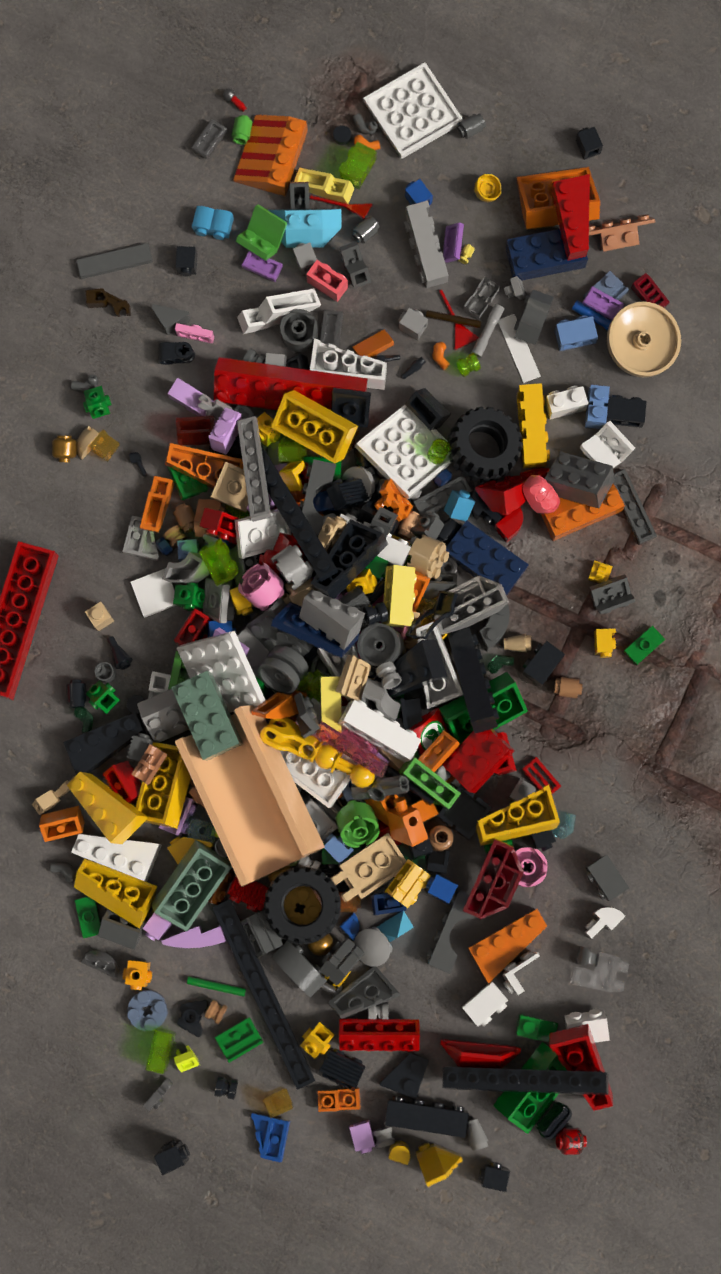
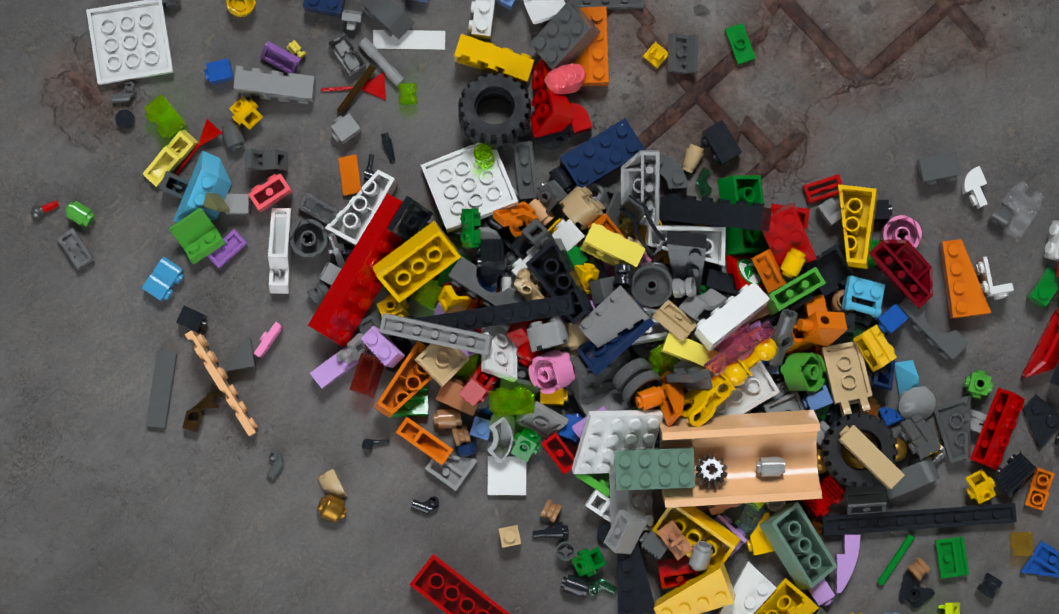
camera: 70 degrees left, 5 degrees up
(97, 402) = (300, 459): green brick -> none
(98, 532) = (427, 506): none -> black arm
(104, 445) = (344, 468): clear yellow panel -> none
(137, 644) = (551, 510): none -> medium nougat wheel
(138, 715) = (624, 533): none -> light grey panel
(144, 795) = (700, 556): none -> light grey brick
(146, 295) = (219, 377): none -> light nougat wing
(173, 352) = (279, 370): black piece -> none
(222, 778) = (718, 474): none -> black gear
(253, 826) = (770, 466): none -> light grey brick
(271, 153) = (115, 195): orange slope -> none
(271, 684) = (649, 398): none -> orange brick
(297, 235) = (215, 202): none -> olive slope
(297, 915) = (870, 456): none -> tan brick
(300, 355) = (336, 249): none -> flat silver piece
(373, 459) = (469, 219): none -> green hinge
(375, 145) = (139, 105): orange arm -> none
(391, 231) = (246, 112): none -> yellow brick
(415, 990) = (971, 384): none -> bright green brick
(427, 409) = (436, 149): black piece -> none
(438, 353) = (386, 118): orange arm -> none
(442, 478) = (508, 162): dark blue tile -> none
(455, 770) = (793, 263): none -> yellow brick
(459, 505) = (542, 158): dark azure brick -> none
(459, 852) = (863, 290): none -> medium azure plate
(484, 1004) = (1007, 323): white brick -> none
(567, 828) = (878, 183): clear light blue arm -> none
(568, 687) = (751, 130): medium nougat brick -> none
(604, 642) = (723, 79): yellow brick -> none

